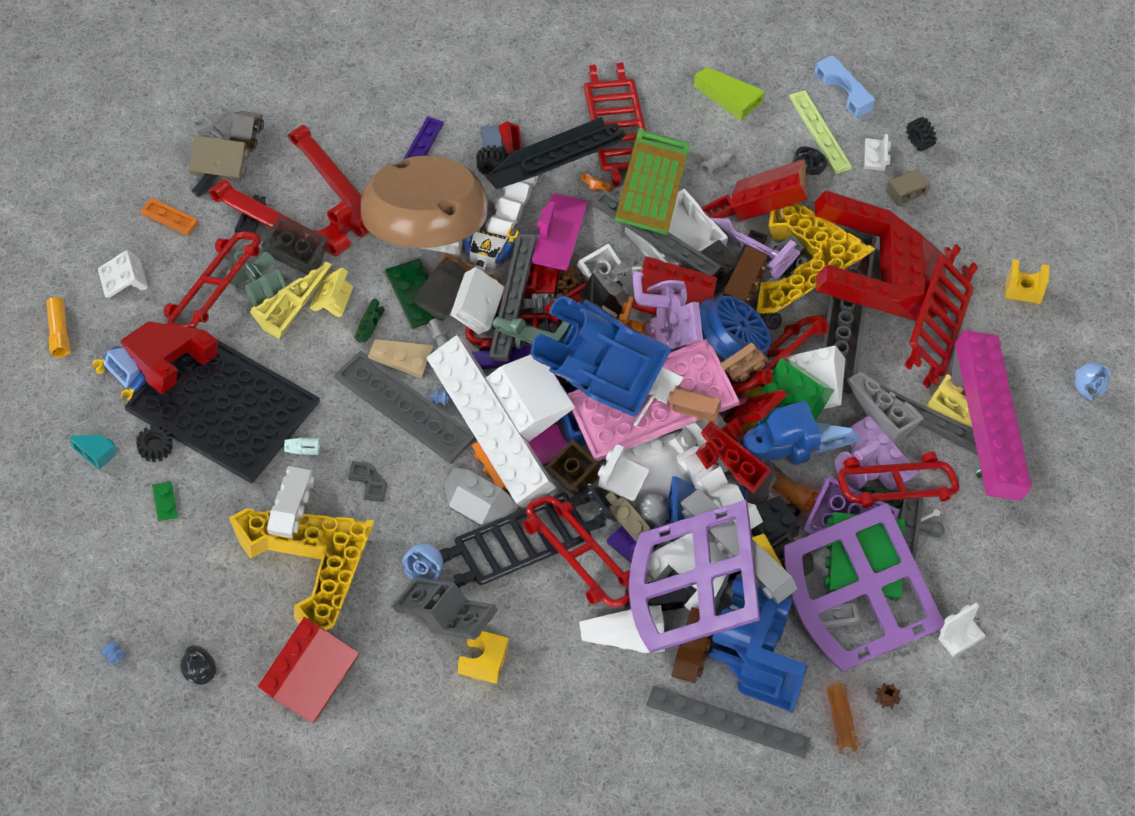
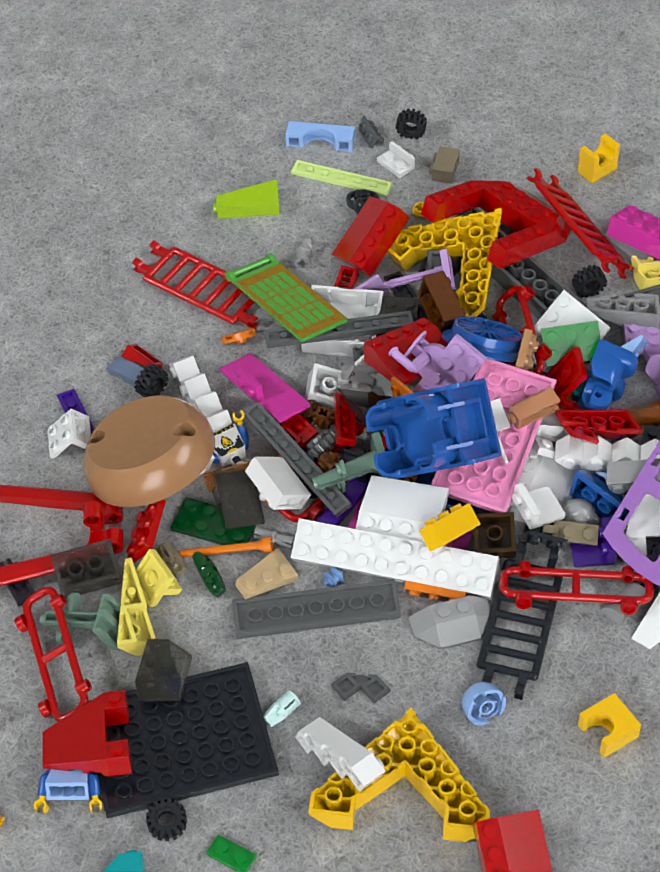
camera: 40 degrees left, 5 degrees down
(259, 352) = (162, 671): none -> clear smoke slope
(359, 289) = (172, 558): none -> dark tan hinge
(361, 254) = (145, 531): none -> red plate
(400, 147) = (67, 430): none -> white bracket
(424, 334) = (264, 544): none -> orange piece
(445, 608) = (545, 717): dark grey bracket -> none
(530, 317) = (328, 460): none -> reddish brown gear
(539, 429) = (449, 526): none -> yellow brick
(555, 152) = (194, 337): black hinge -> none
(888, 363) = (589, 281): none -> black tyre
(890, 110) = (370, 133): none -> dark grey hinge

